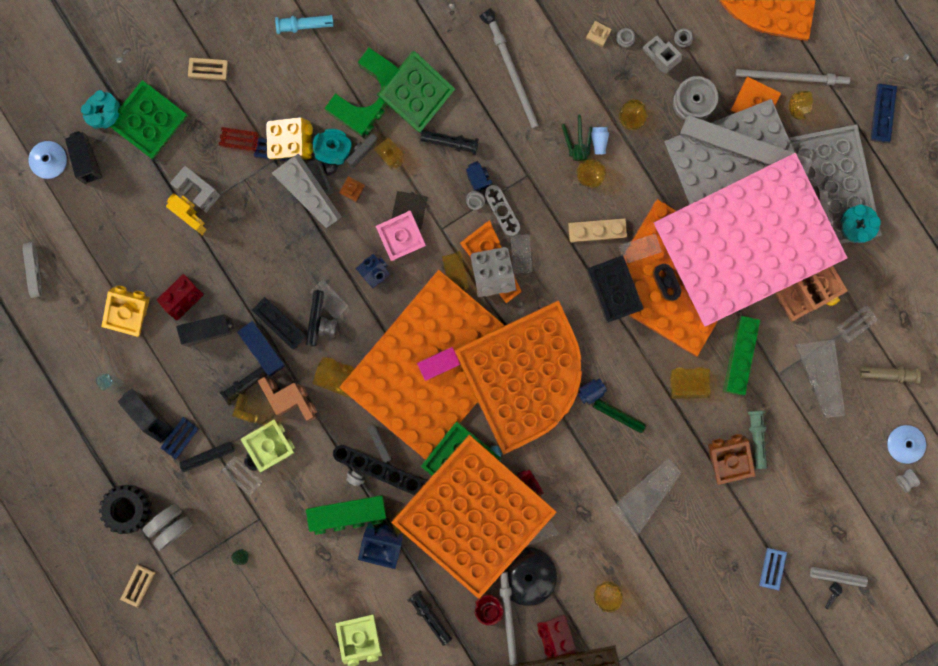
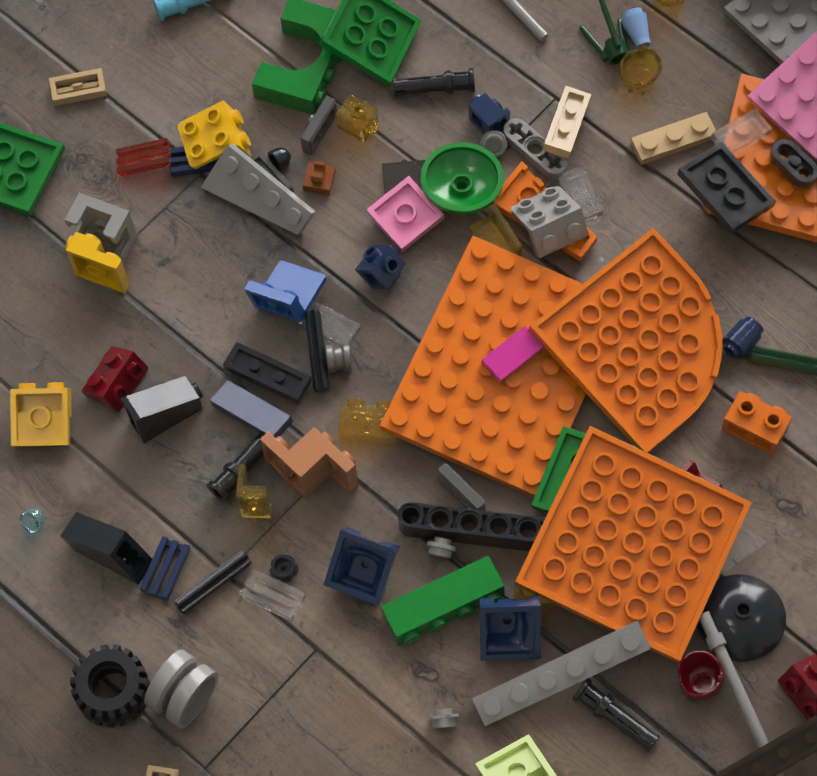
camera: 10 degrees left, 20 degrees down
(240, 557) = (301, 709): clear green hinge -> none
(268, 445) = (299, 535): yellowish green plate -> none
(300, 480) = (360, 566): none -> dark blue brick
(308, 269) = (287, 291): none -> bracket
(324, 589) = (444, 718): none -> light grey plate
(329, 155) = (275, 130): teal plate -> none
(404, 584) = (561, 673): none -> light grey plate
(446, 210) = (465, 167): none -> green dish
(528, 200) = (566, 122): none -> tan plate
(581, 452) = (757, 422): none -> orange brick

